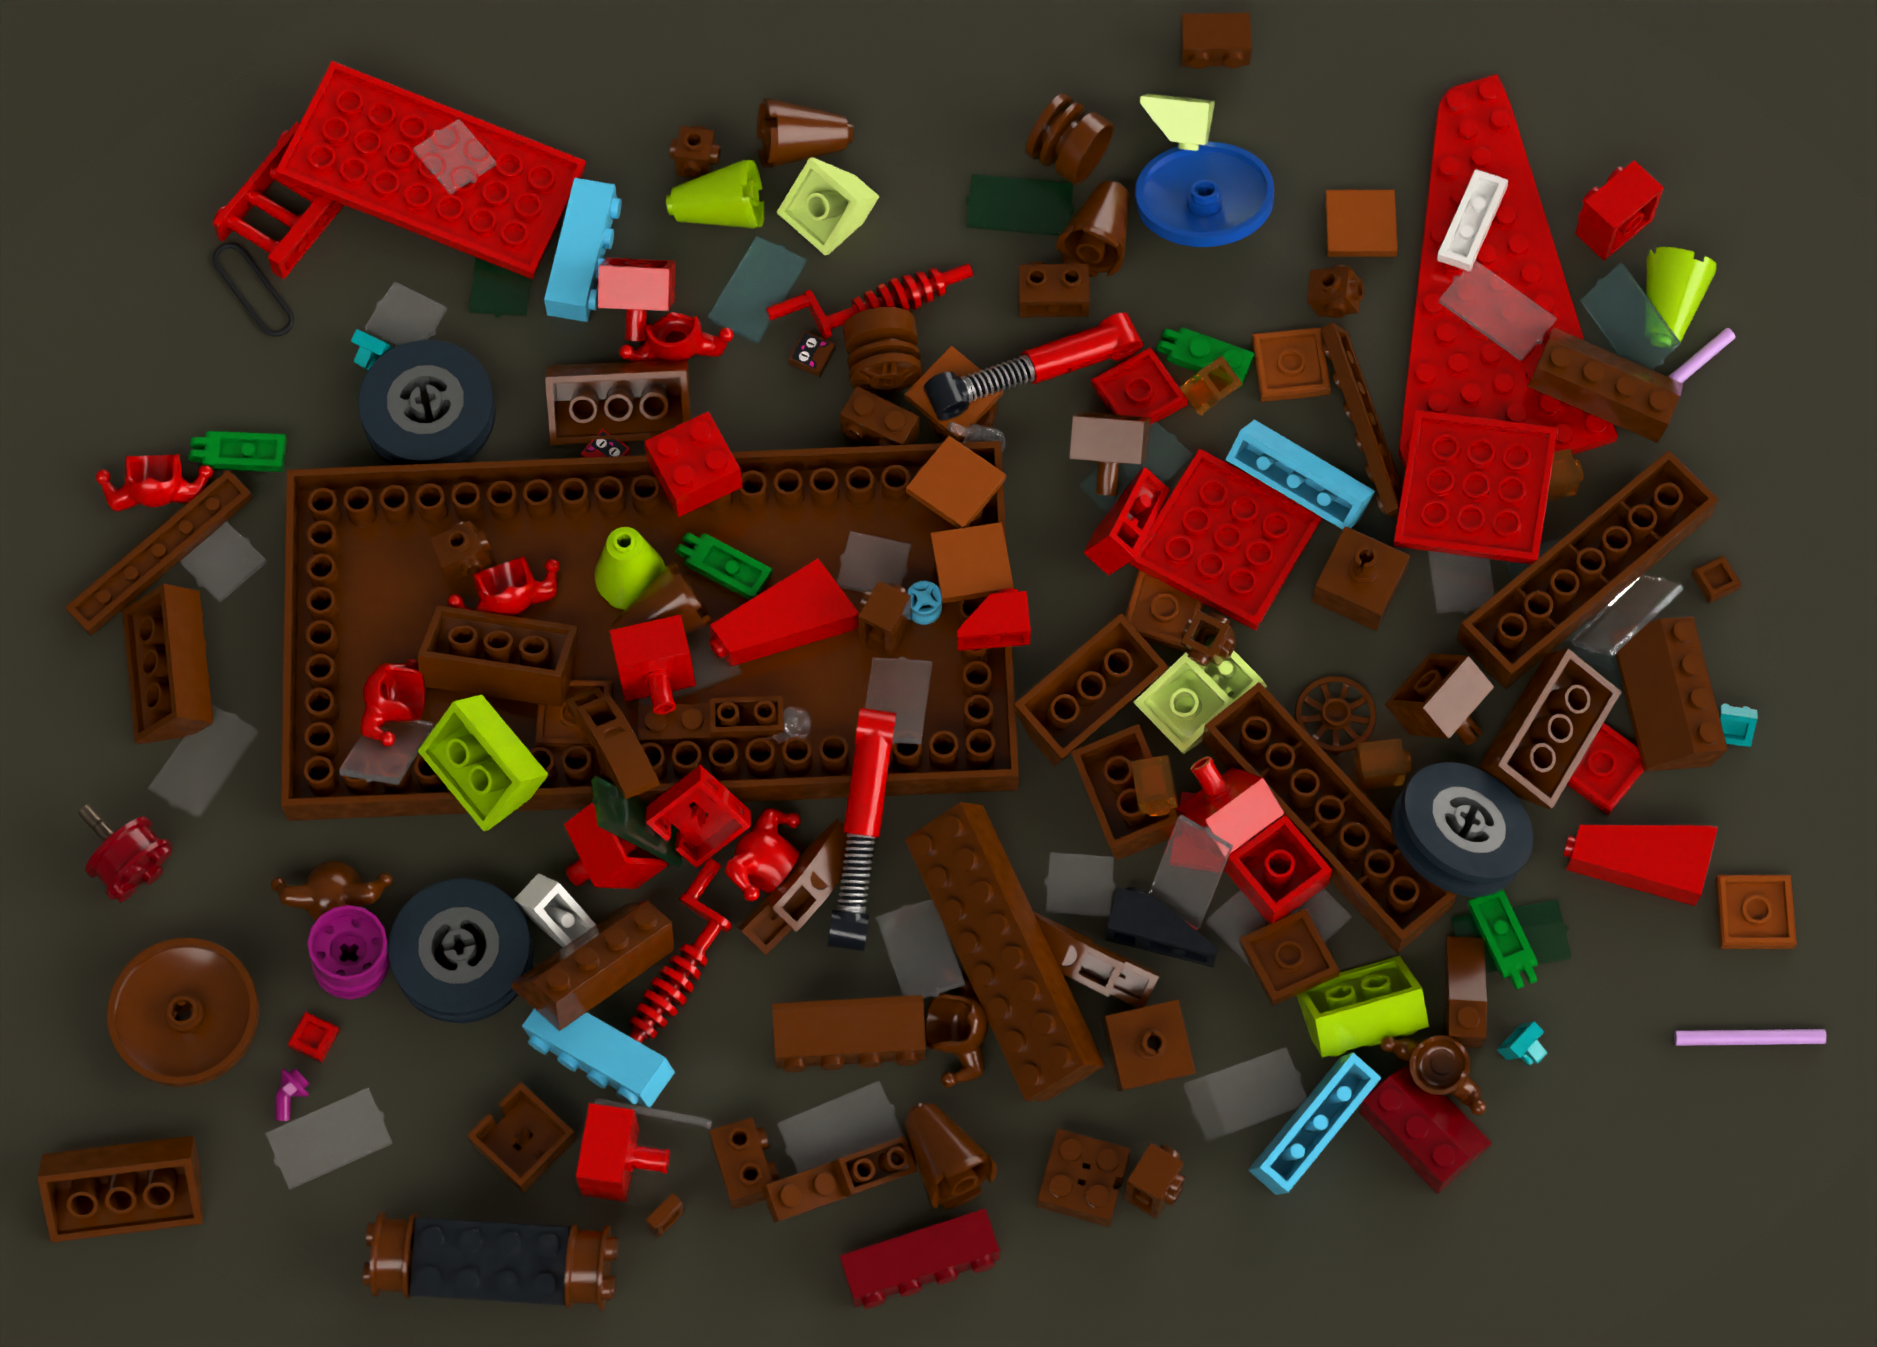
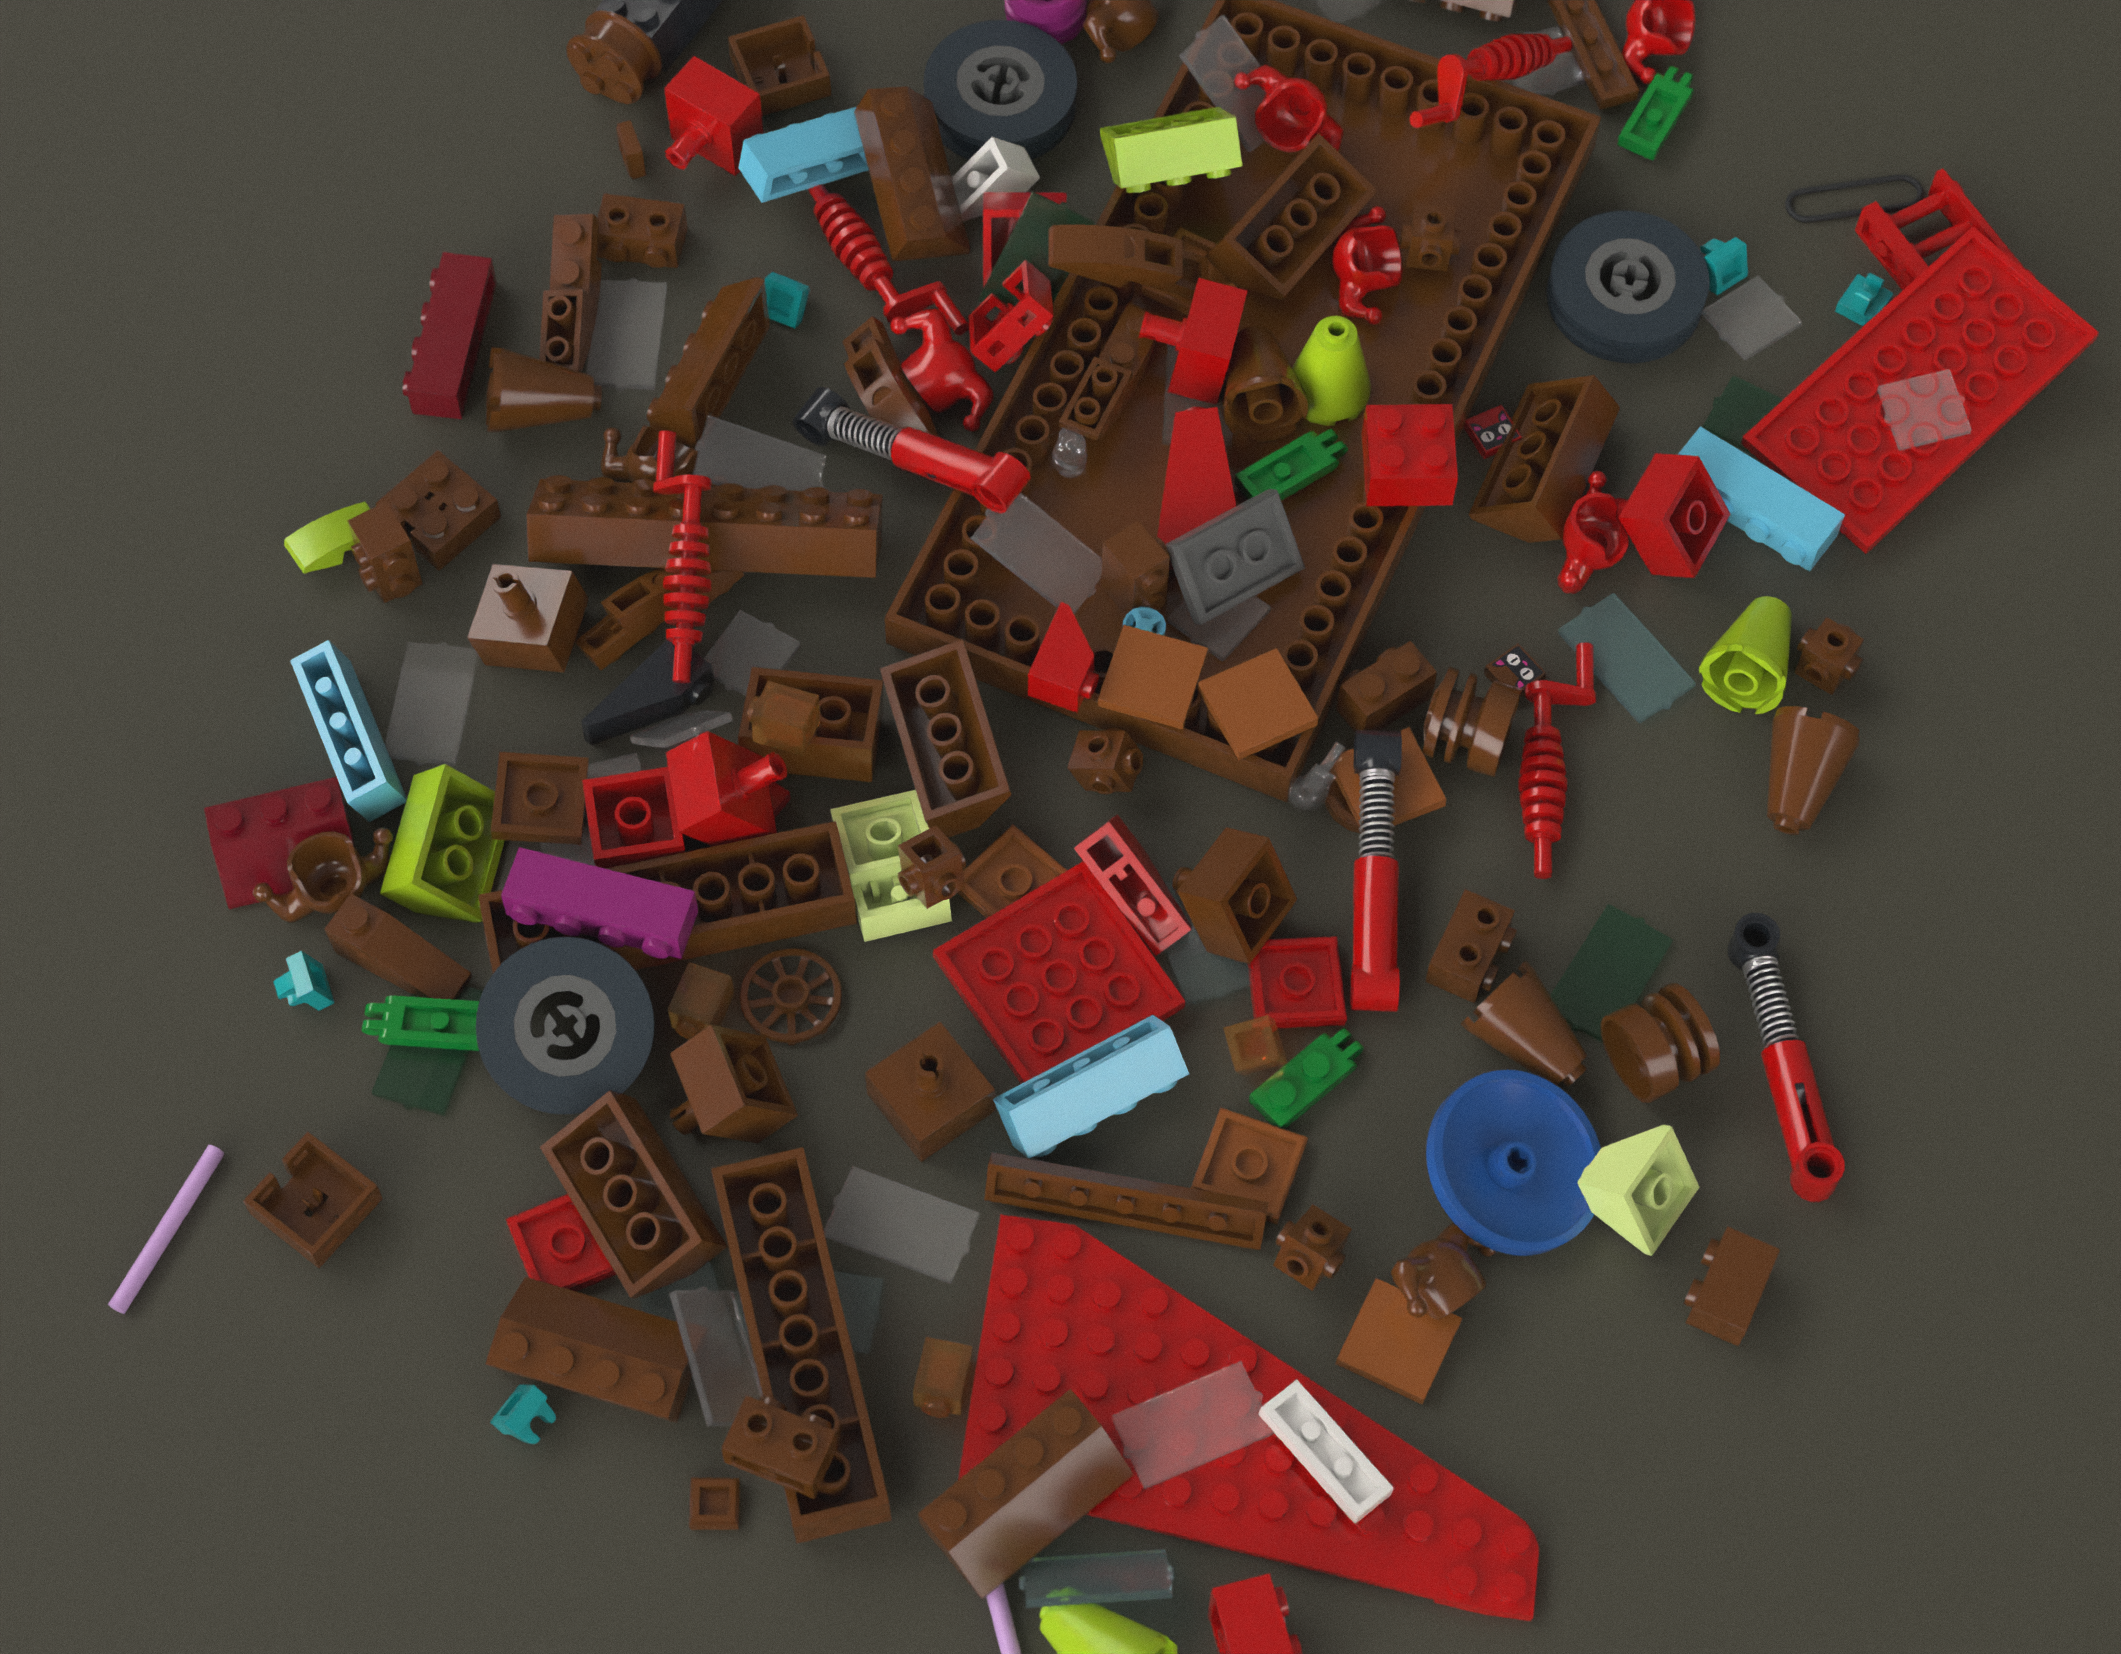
camera: 115 degrees right, 5 degrees down
(269, 560) = (1500, 59): none -> red piece
(354, 246) = (1864, 299): none -> teal tile
(661, 1115) = (719, 181): clear piece -> none
(752, 1015) = (786, 299): none -> teal tile
(827, 204) = (1696, 763): yellowish green slope -> none
(835, 555) = (1235, 556): none -> dark grey tile
(1030, 69) = (1786, 1062): none -> piece
(1048, 592) = (1105, 761): none -> reddish brown brick
(1062, 923) = (688, 566): none -> red piece
(1151, 1242) = (324, 540): none -> lime slope
(1312, 206) = (1440, 1274): none -> reddish brown piece
(1369, 840) = (599, 904): none -> magenta brick
(1476, 487) = (965, 1261): red plate -> none
(1647, 858) = (425, 1223): red slope -> none
(1679, 522) = (780, 1445): none -> reddish brown brick
(1680, 925) = (314, 1172): none -> reddish brown piece
(1755, 912) = (299, 1316): dark orange tile -> none

